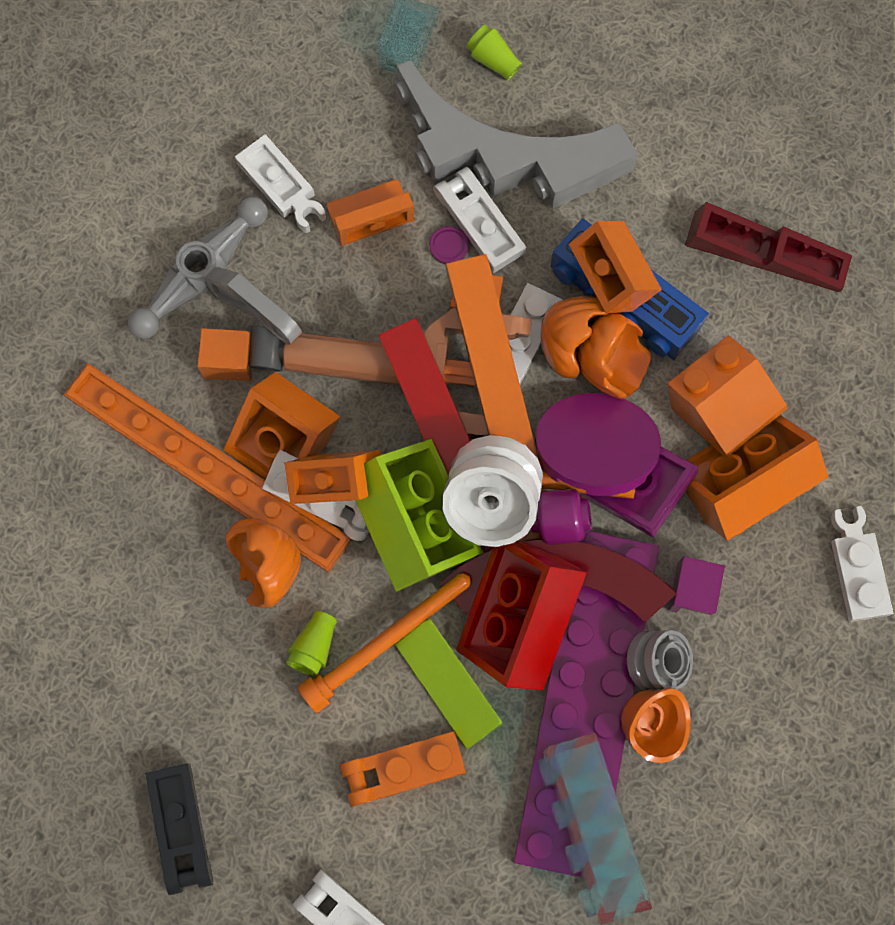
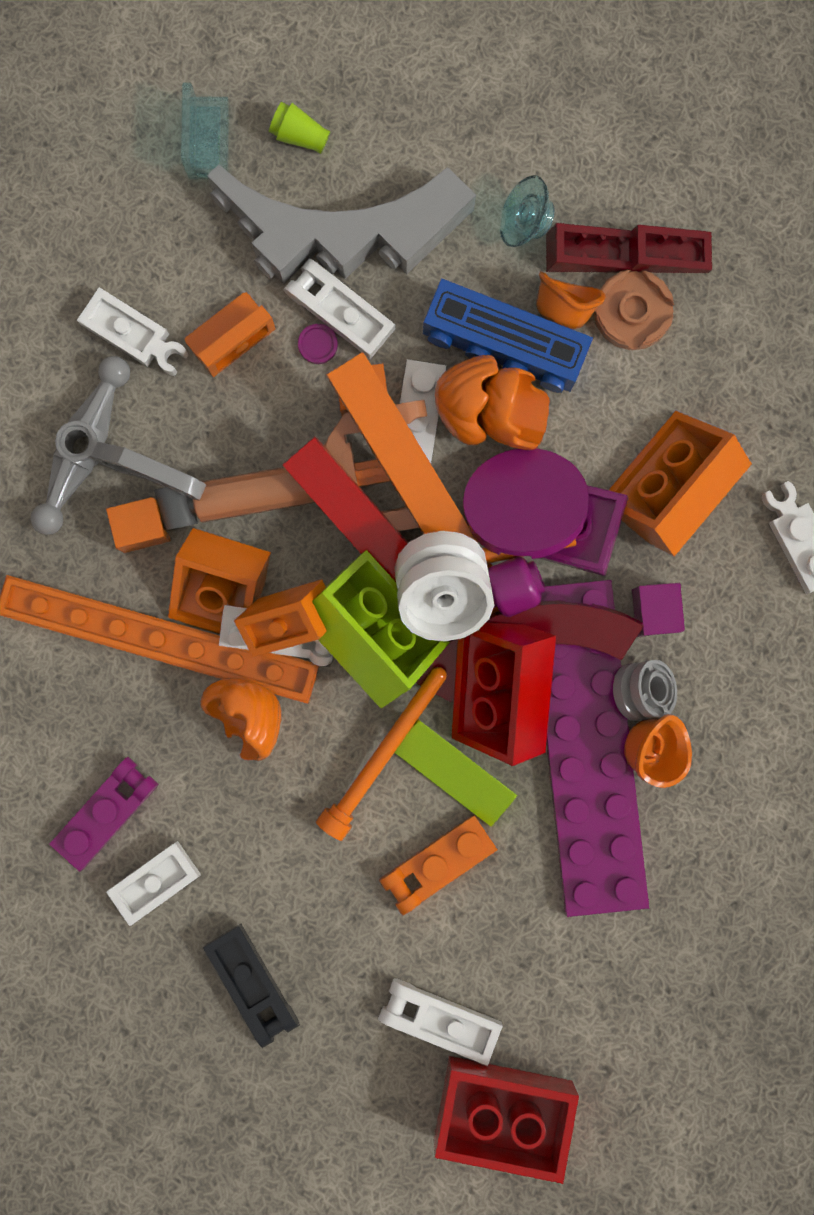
camera: 20 degrees left, 10 degrees up
(96, 615) = (103, 815): none -> magenta plate
(120, 695) = (153, 883): none -> white plate
(312, 645) = (317, 780): lime cone -> none
(595, 829) = (634, 867): clear light blue brick -> none
(614, 266) = (490, 322): orange brick -> none
(681, 185) = (526, 212): none -> clear light blue piece
(693, 276) = (566, 302): none -> orange helmet
(726, 396) = (633, 415): orange slope -> none
(749, 312) = (625, 320): none -> nougat tile

